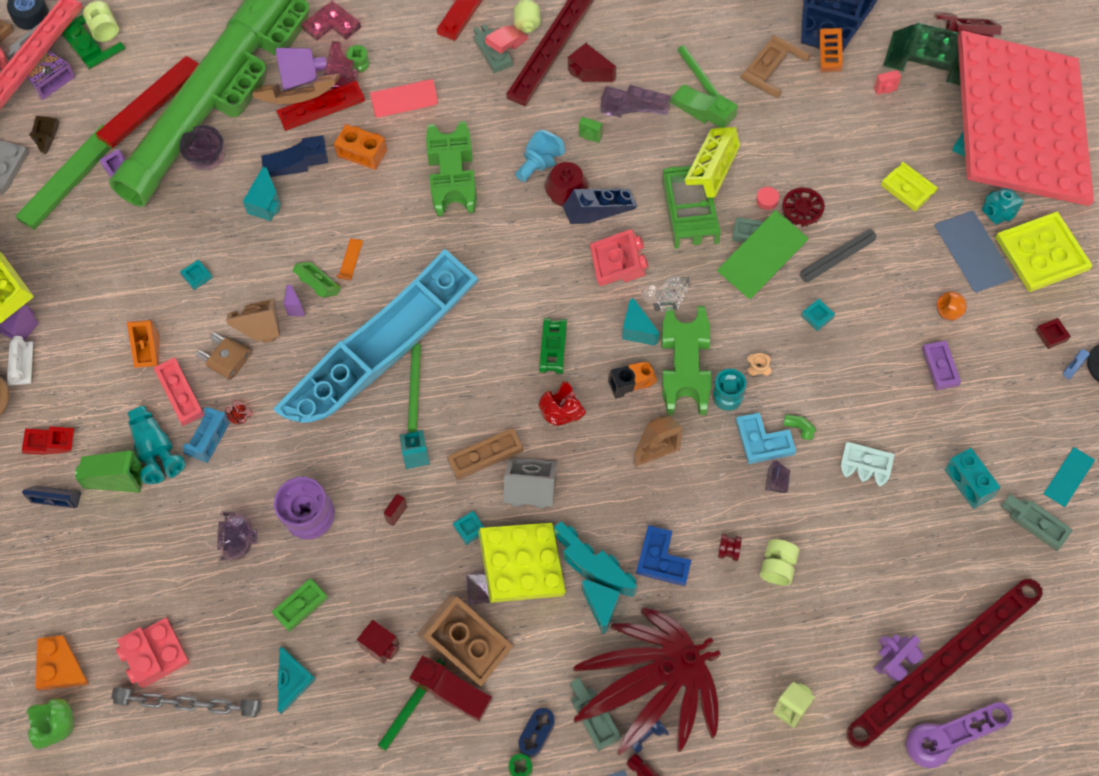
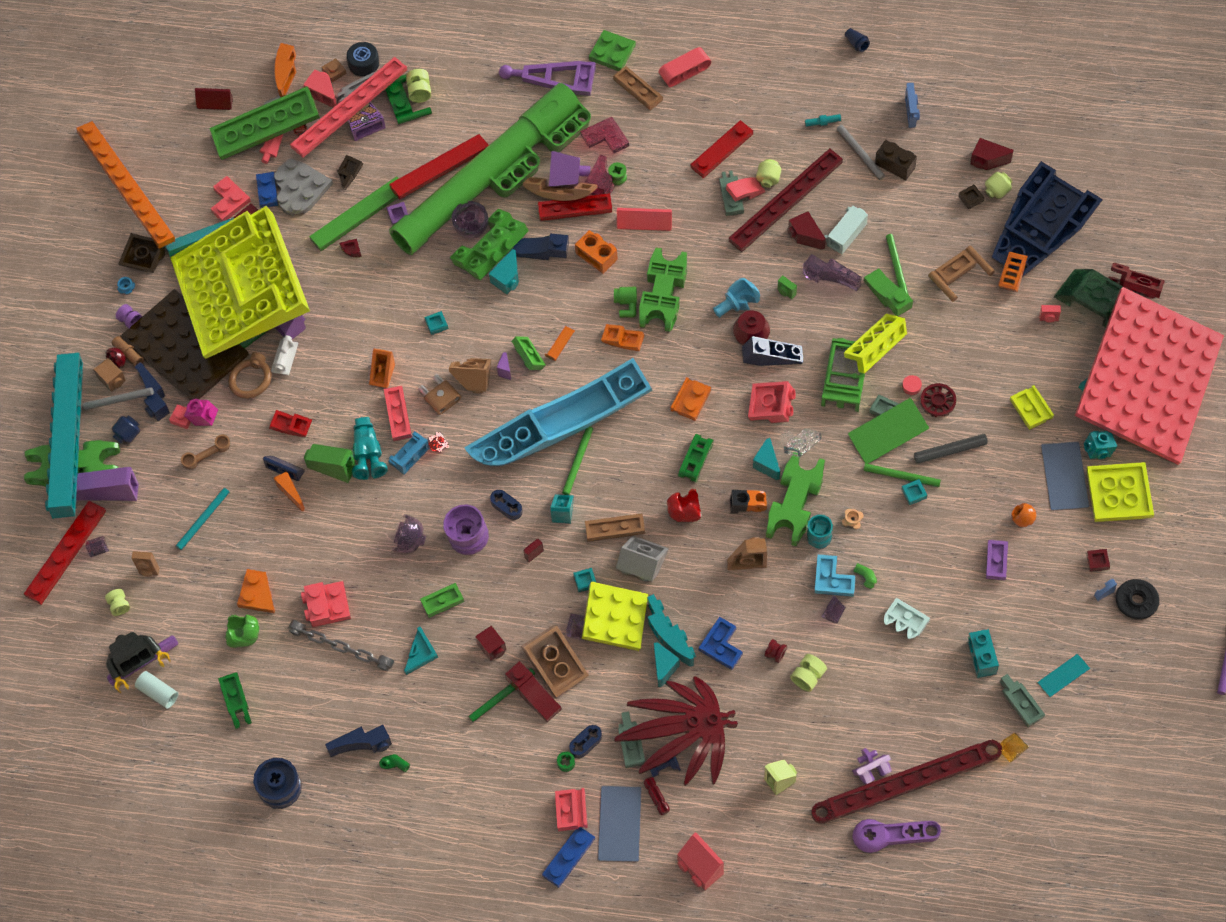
camera: 20 degrees right, 0 degrees up
(62, 518) = (286, 485): none -> orange slope
(69, 217) = (351, 248): none -> dark red tile
(237, 173) = (501, 238): none -> bright green bracket
(342, 468) = (508, 501): none -> dark blue beam
(411, 186) = (626, 296): none -> bright green piece
(418, 234) = (619, 337): none -> orange slope
(523, 280) = (691, 399): none -> orange plate
(634, 52) = (847, 229): none -> light aqua brick
(795, 300) = (901, 475): none -> bright green bar
(1050, 580) = (1013, 747): none -> clear yellow slope

